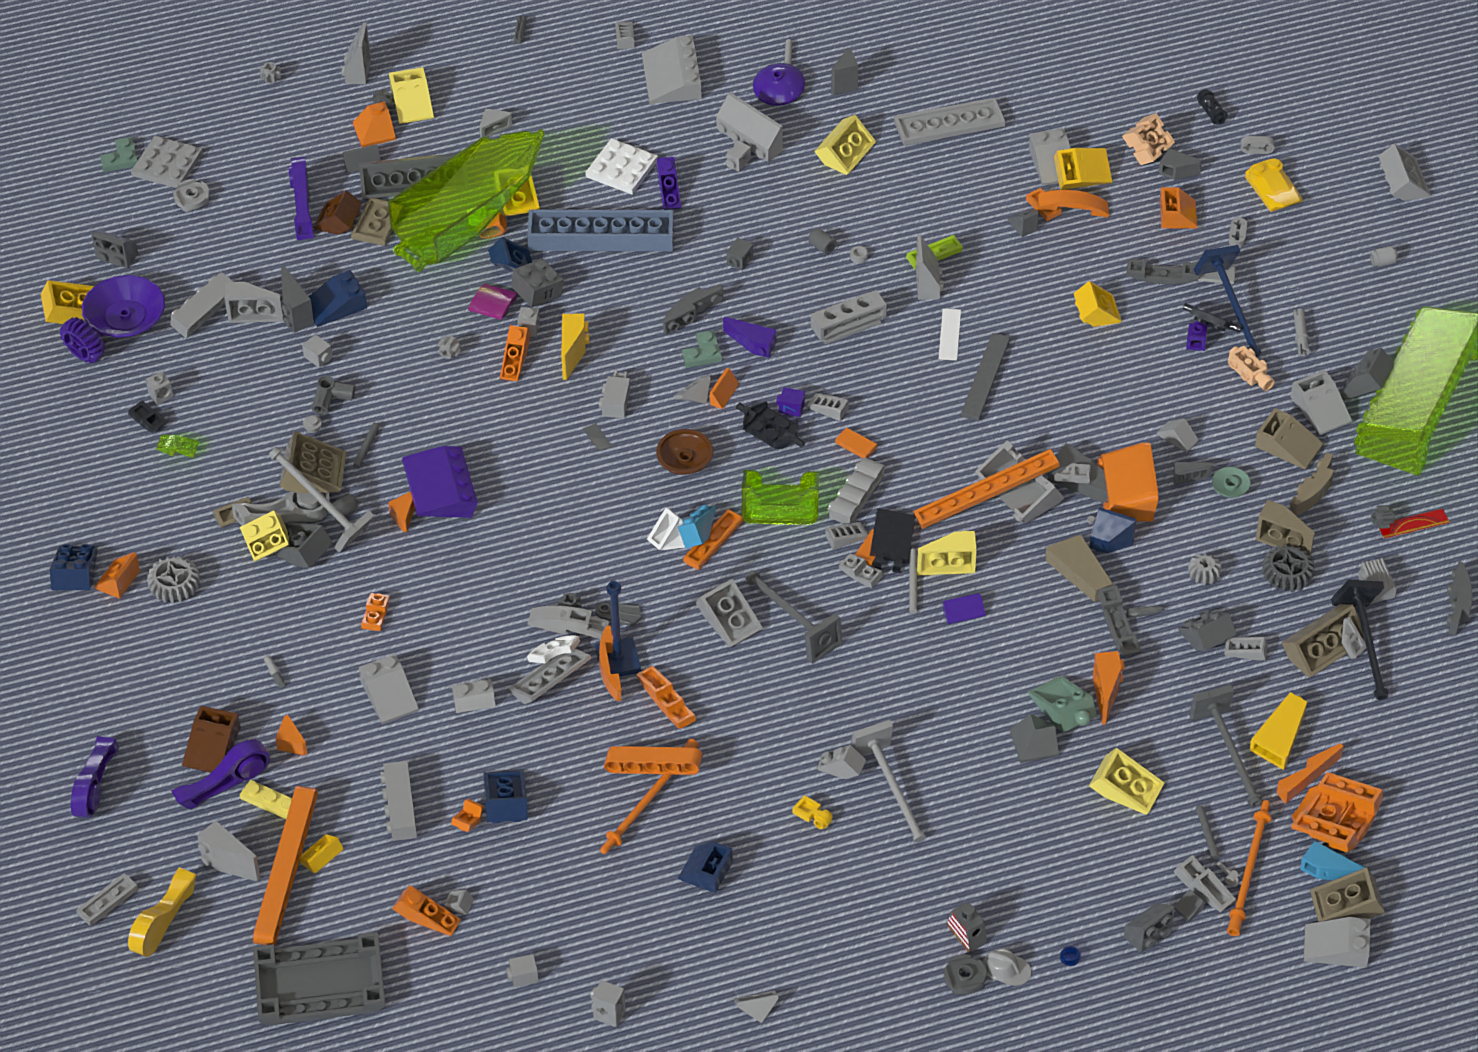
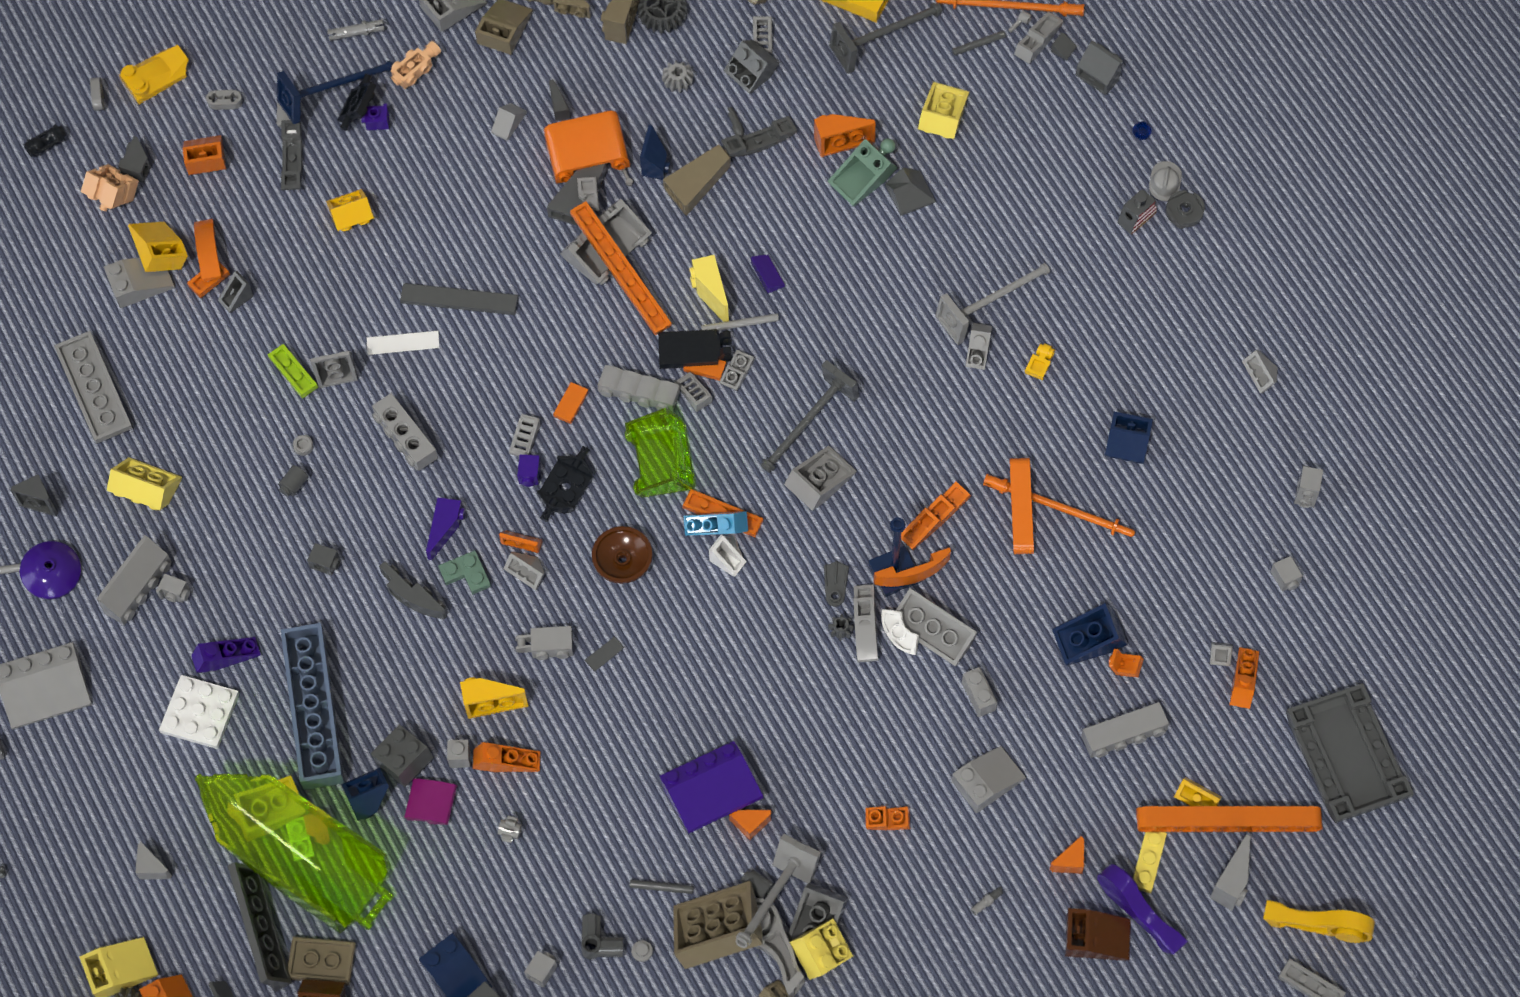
camera: 100 degrees left, 15 degrees up
(1231, 482) = (565, 60): sand green dish -> none

